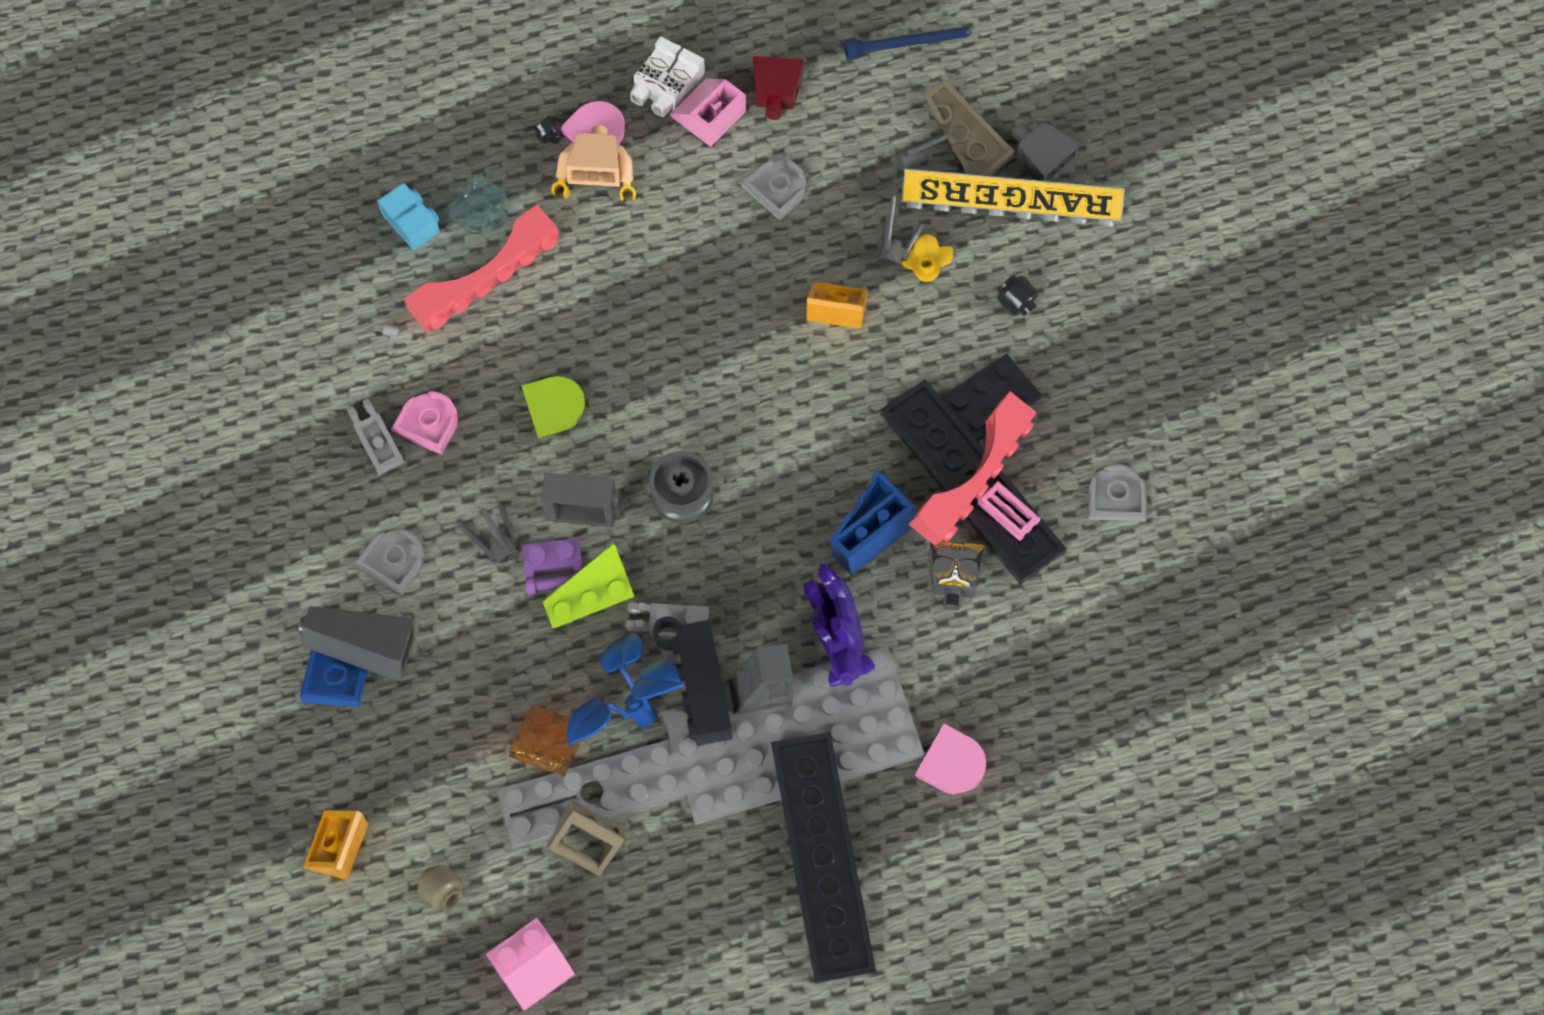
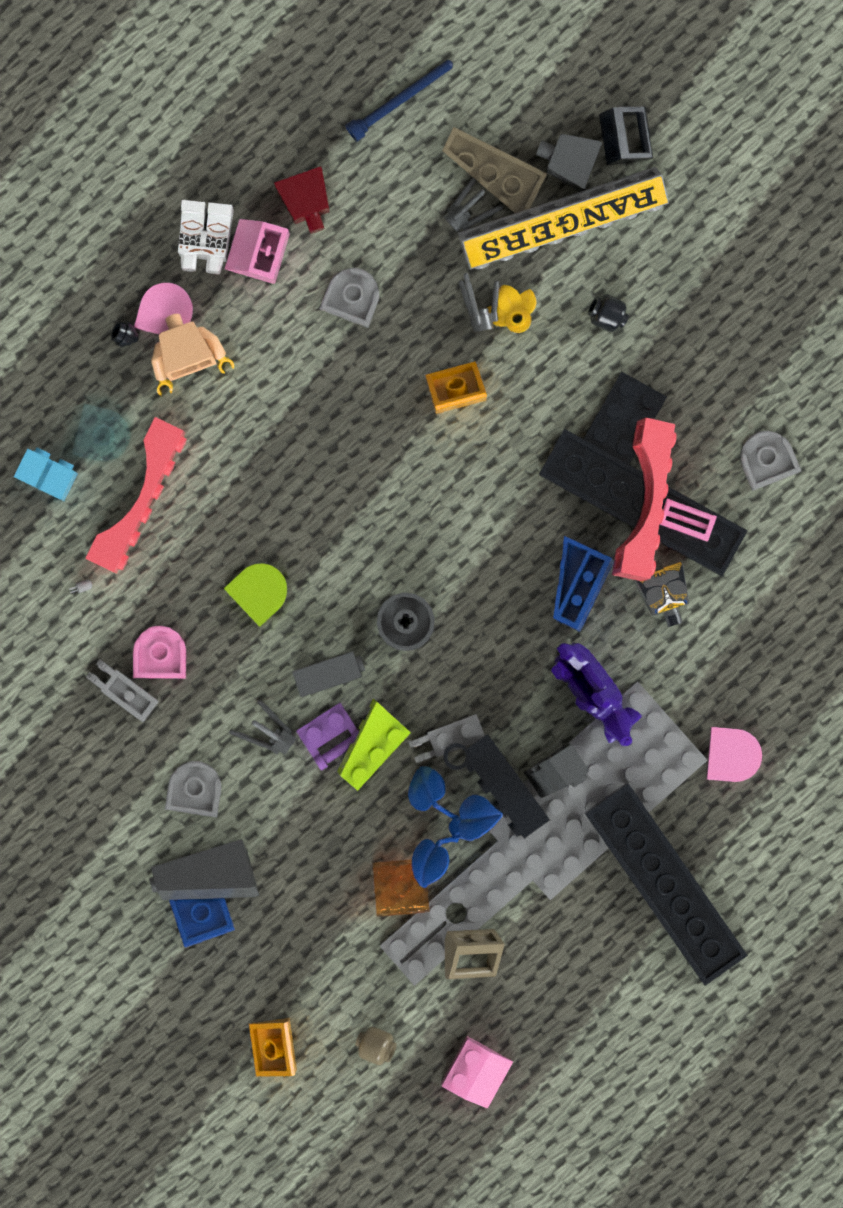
camera: 25 degrees left, 20 degrees up
(1094, 151) = (615, 135): none -> black tile

